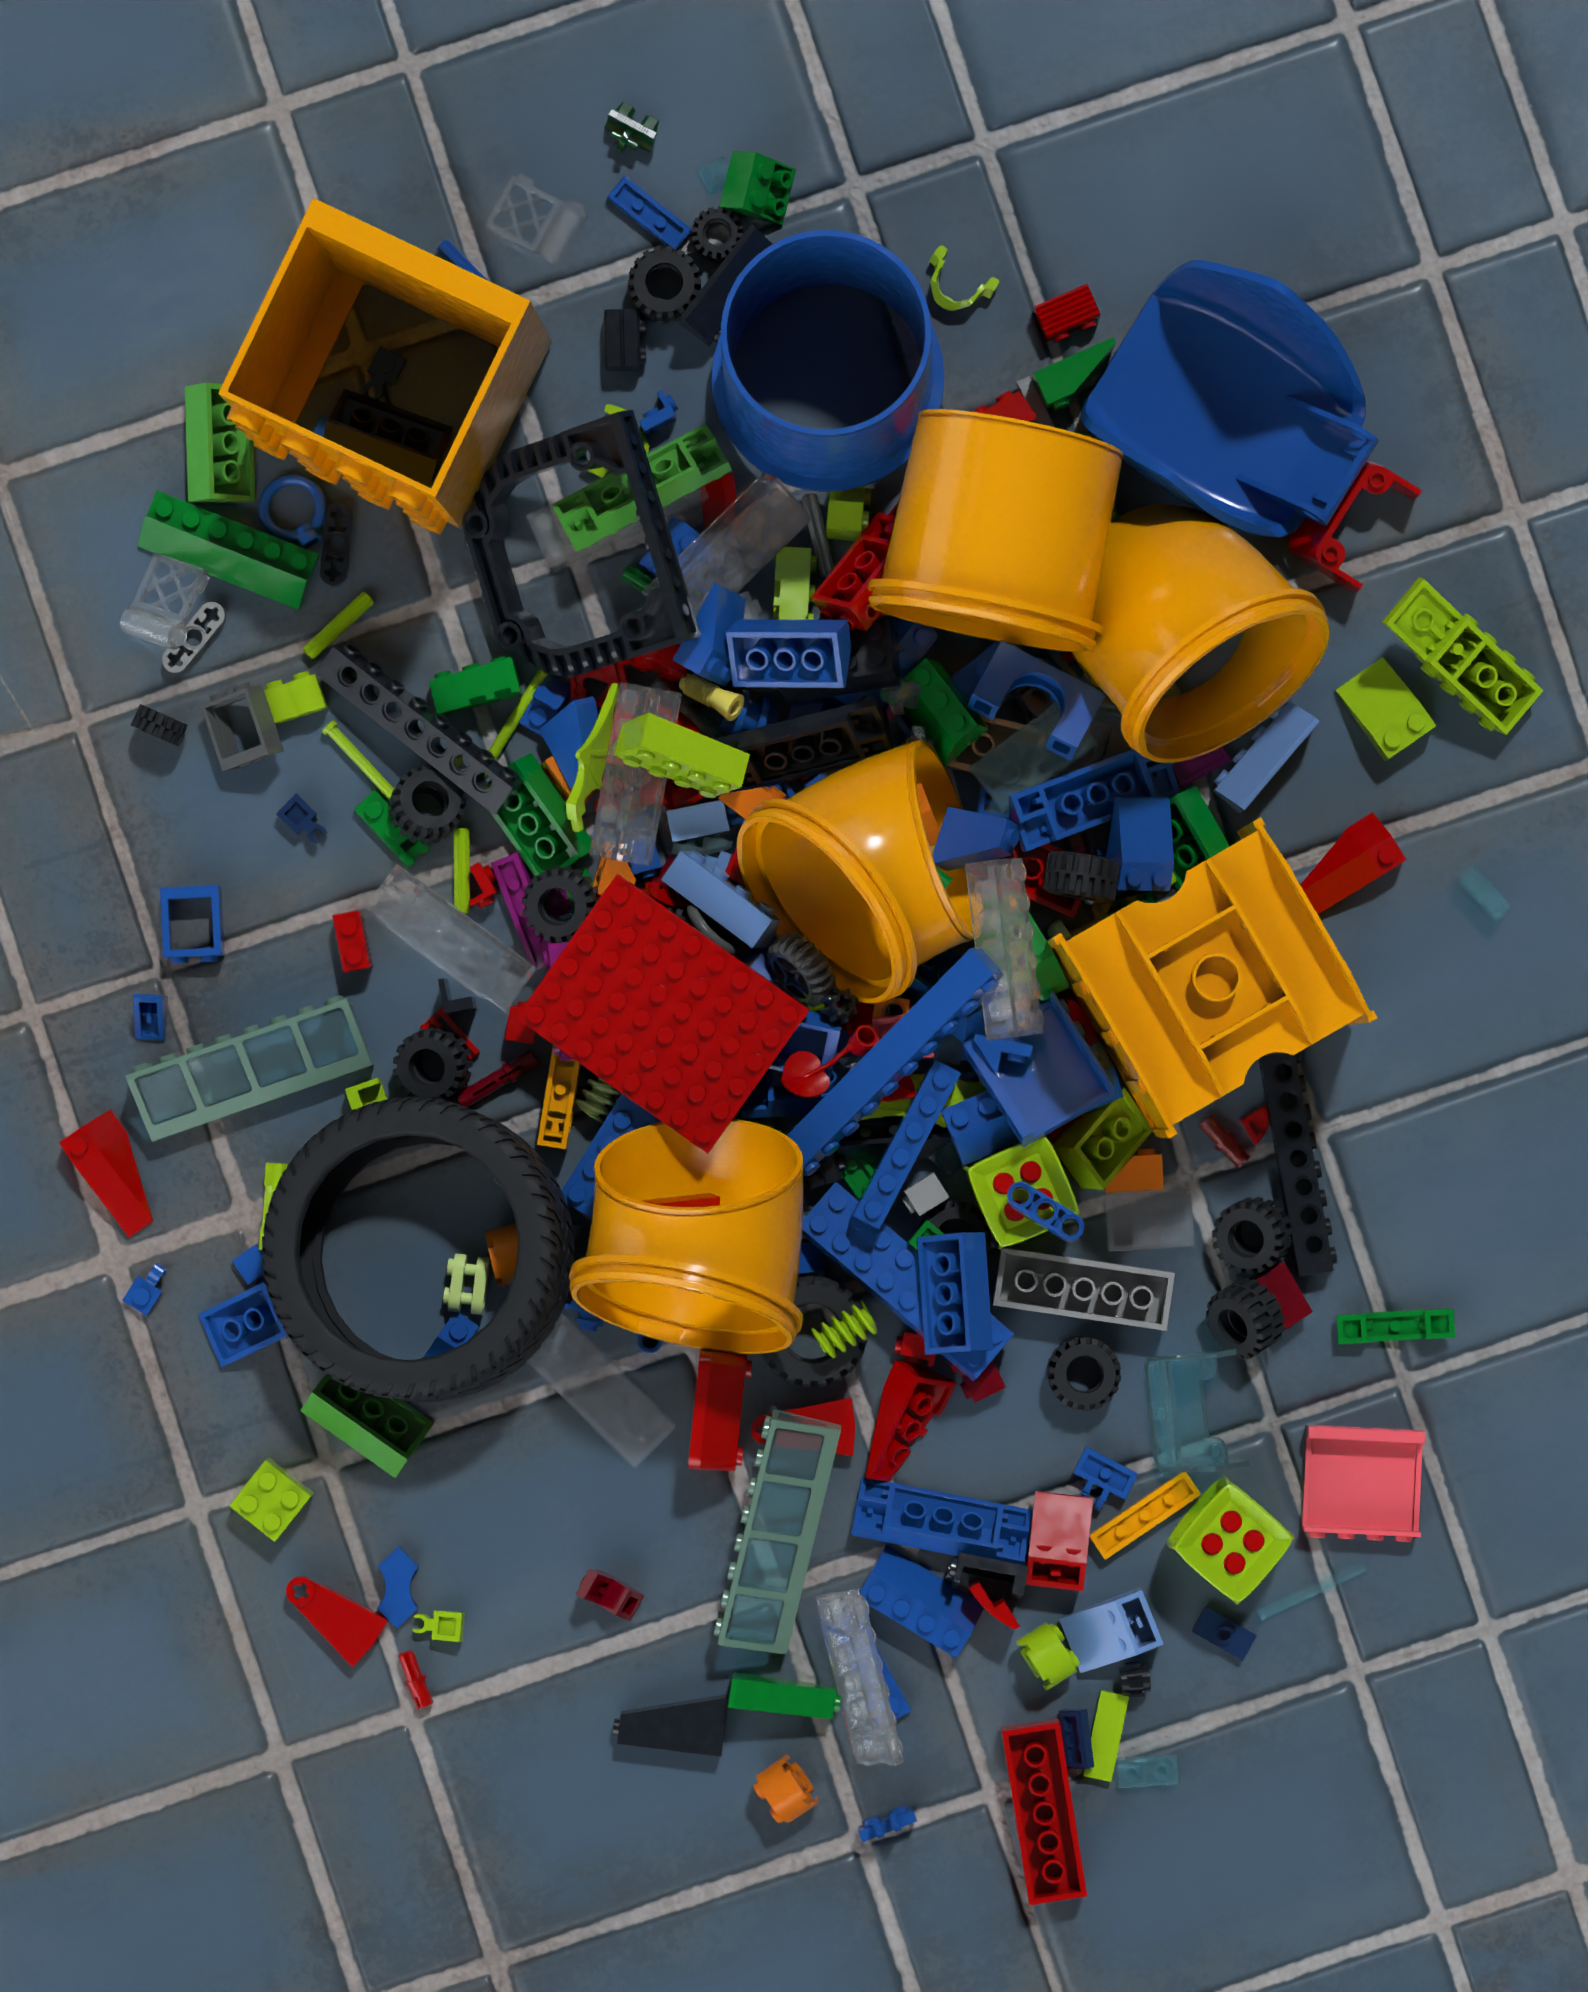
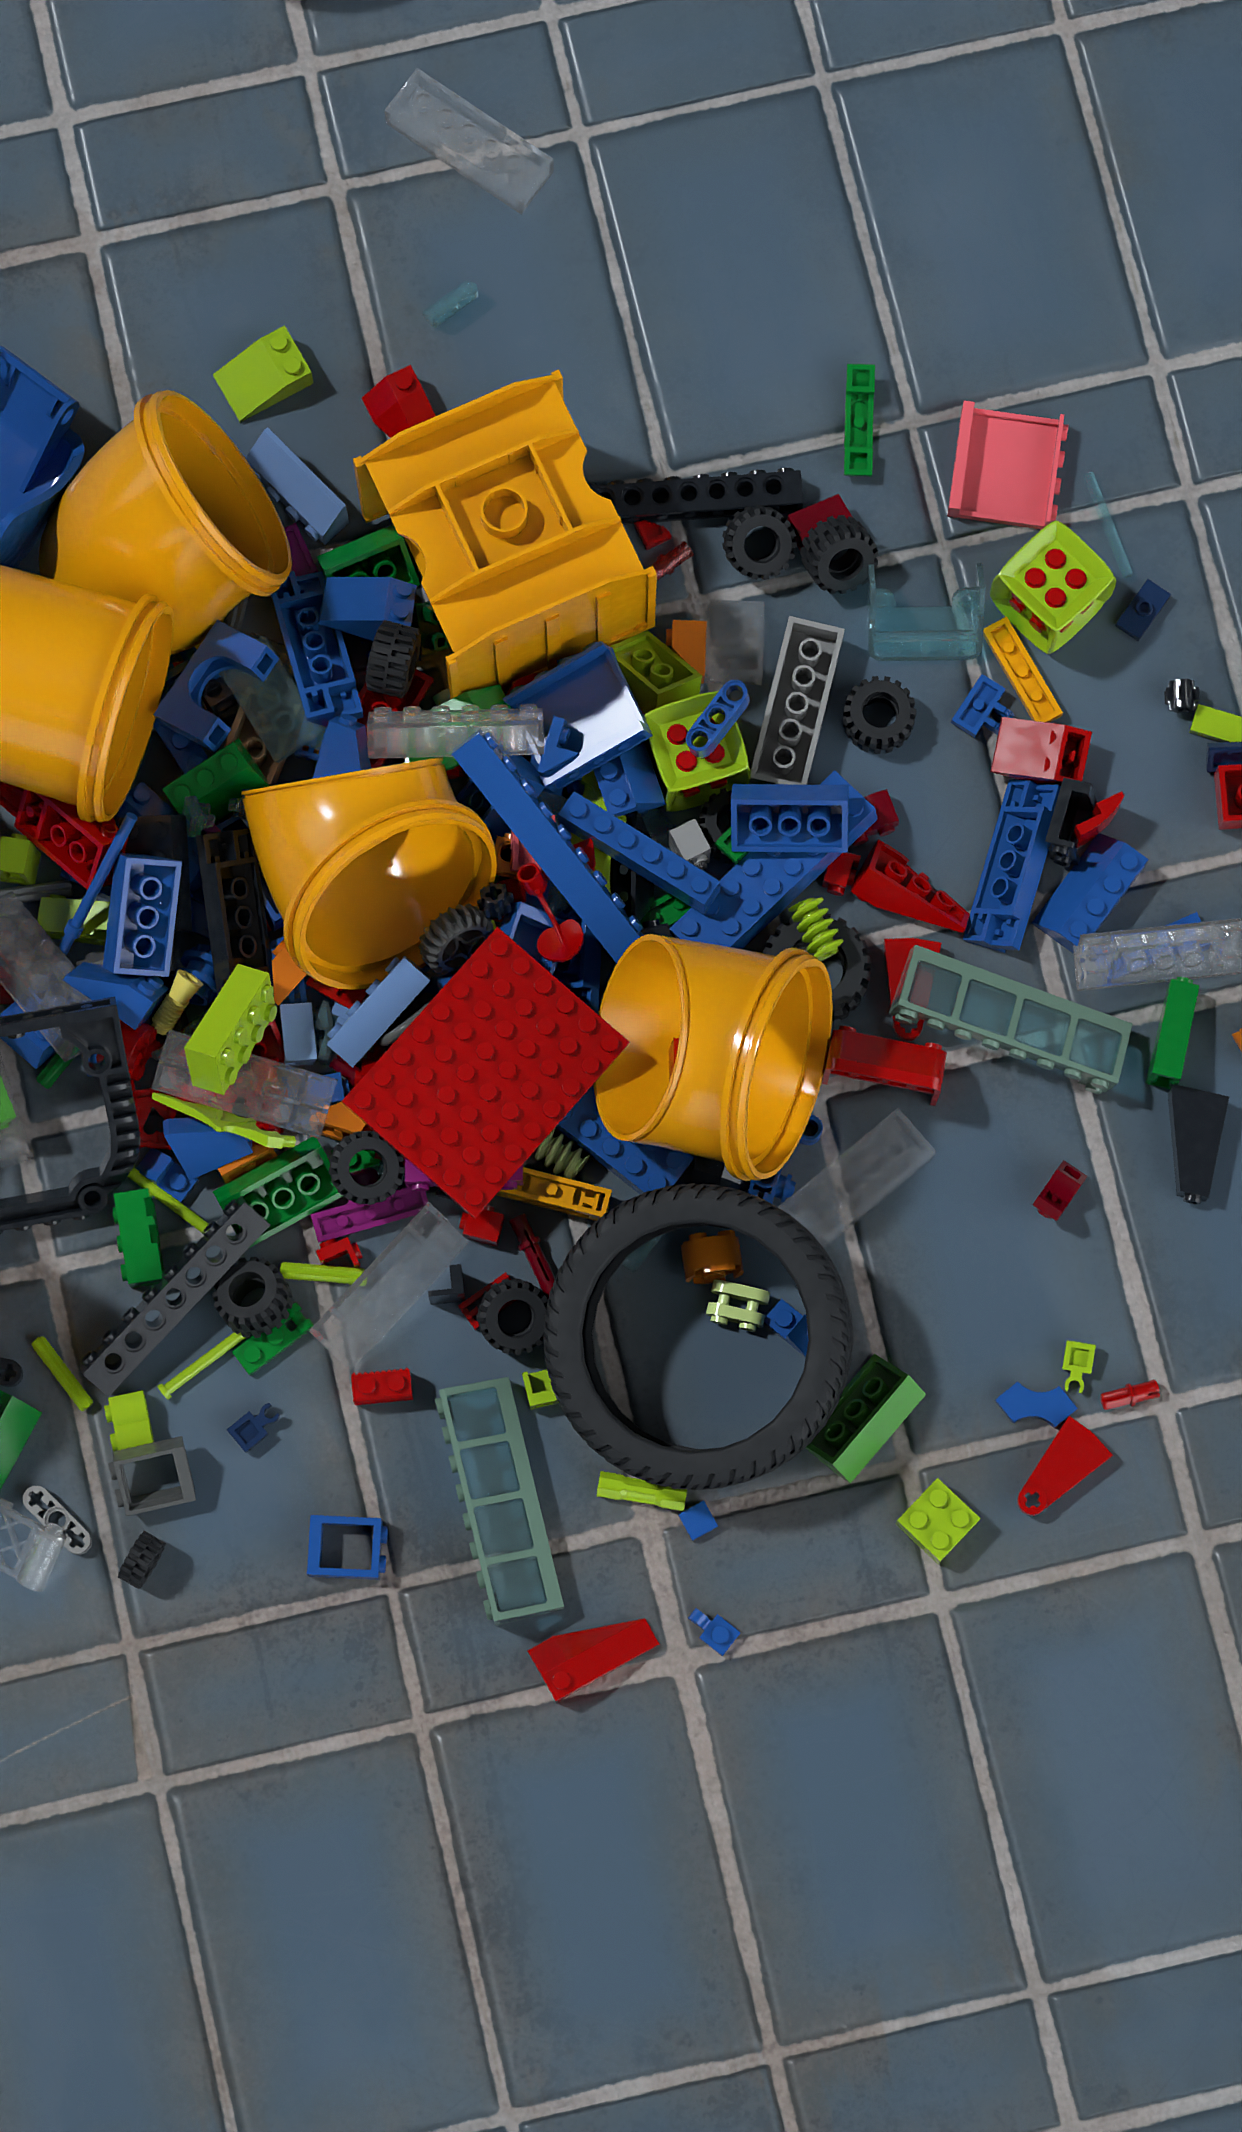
camera: 90 degrees left, 10 degrees down
(150, 1016) = (436, 1599): blue slope -> none
(242, 1325) = (756, 1526): blue slope -> none
(779, 587) = (75, 926): none -> blue bar
(1047, 1655) = (1152, 773): lime brick -> none
(1111, 1630) = (1132, 712): medium blue slope -> none
(1314, 542) = (95, 420): red windscreen -> none
(1463, 658) = (223, 292): lime wedge -> none

